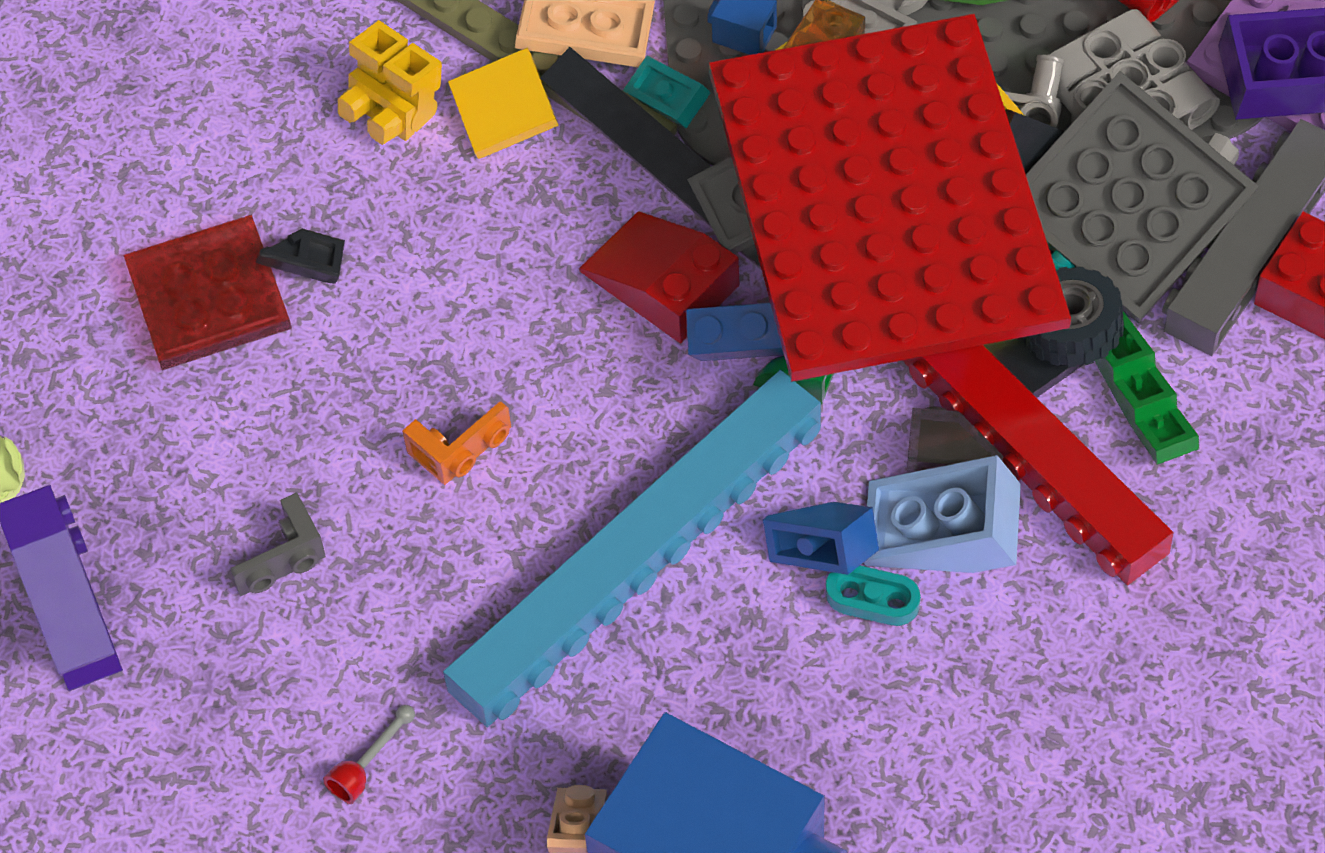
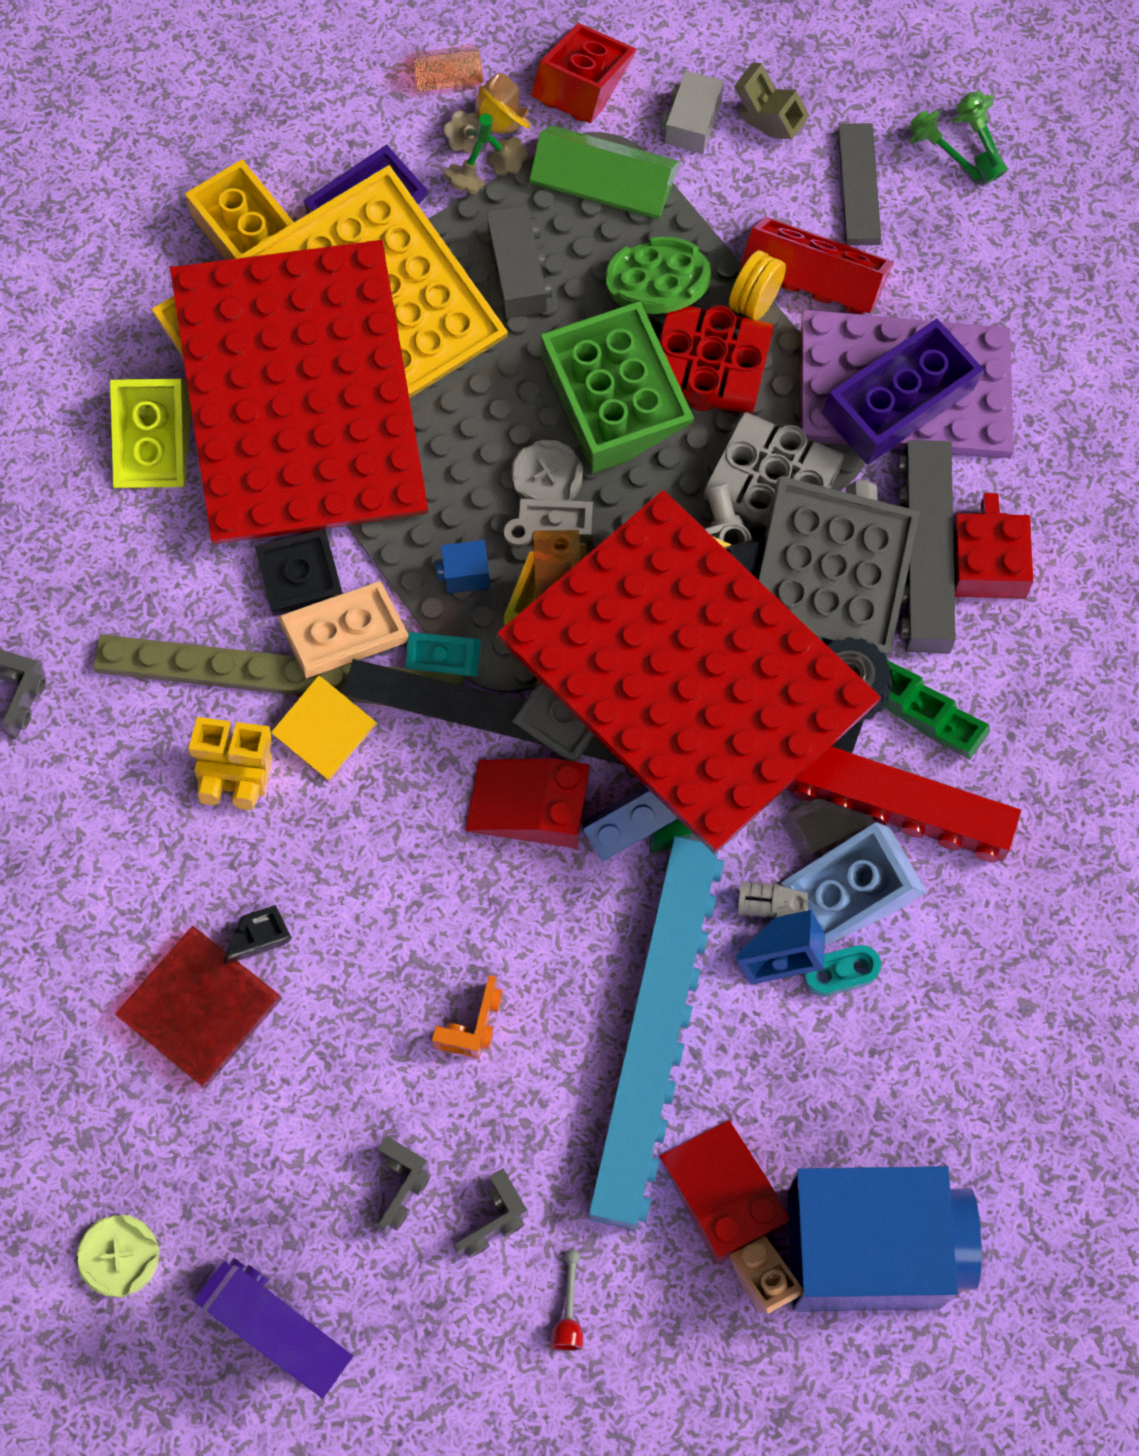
camera: 35 degrees left, 10 degrees up
(361, 641) = (504, 1197): none -> dark grey bracket
(595, 728) = (724, 1191): none -> red slope
(840, 484) = (784, 900): none -> light grey hinge

